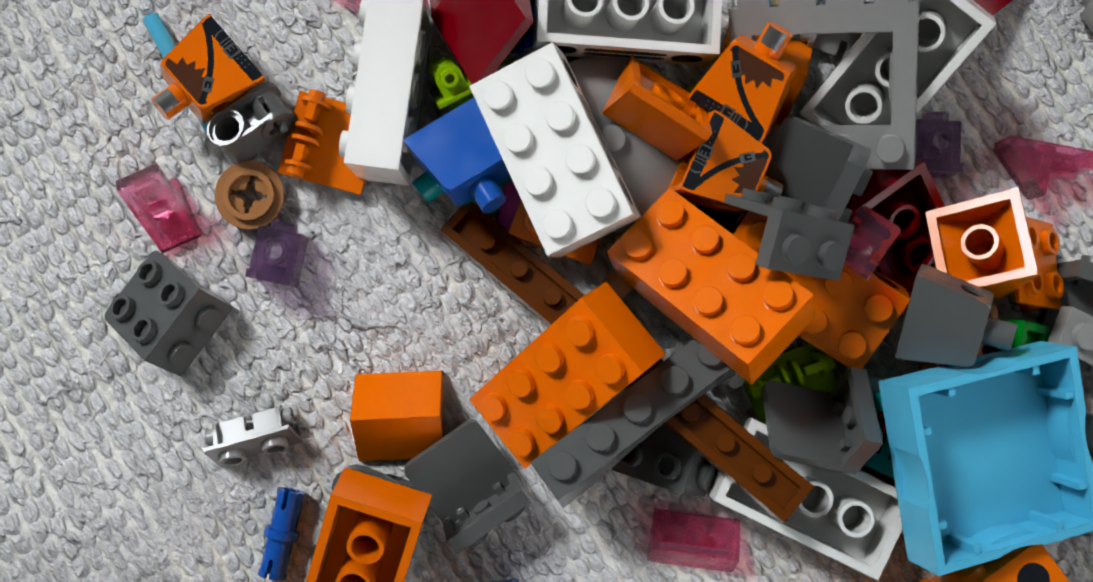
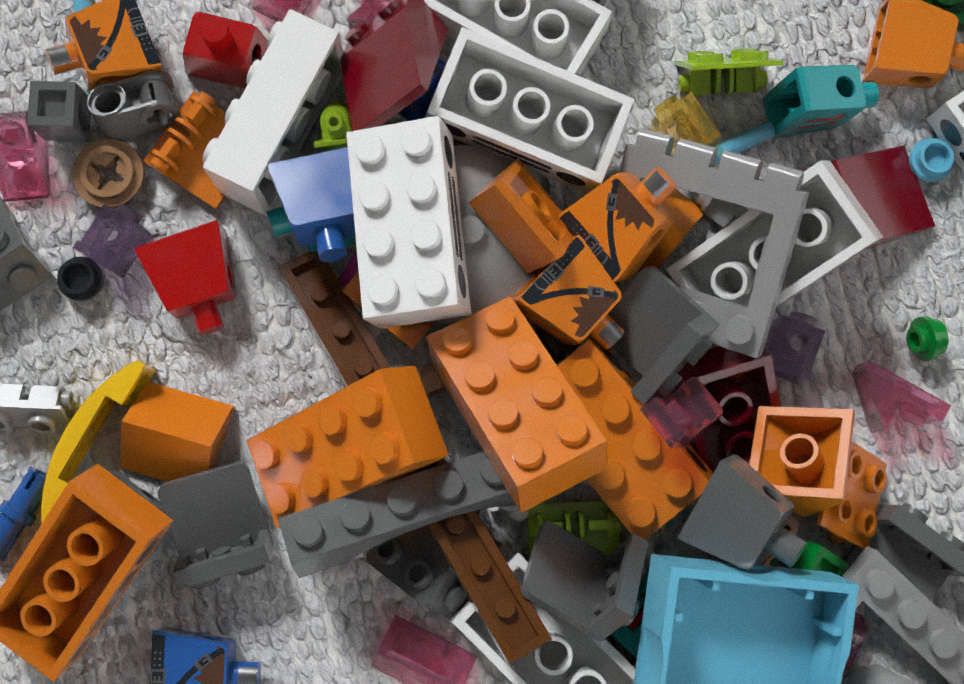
camera: 15 degrees right, 5 degrees down
(184, 152) = (58, 111): none -> dark grey brick
(259, 301) = (80, 279): none -> black plate
(315, 498) = (86, 424): none -> yellow slope
(318, 43) = (222, 49): none -> red torso
(362, 263) = (192, 273): none -> red torso
(796, 238) = (614, 380): dark grey bracket -> none
(1054, 96) = (927, 338): none -> green plate

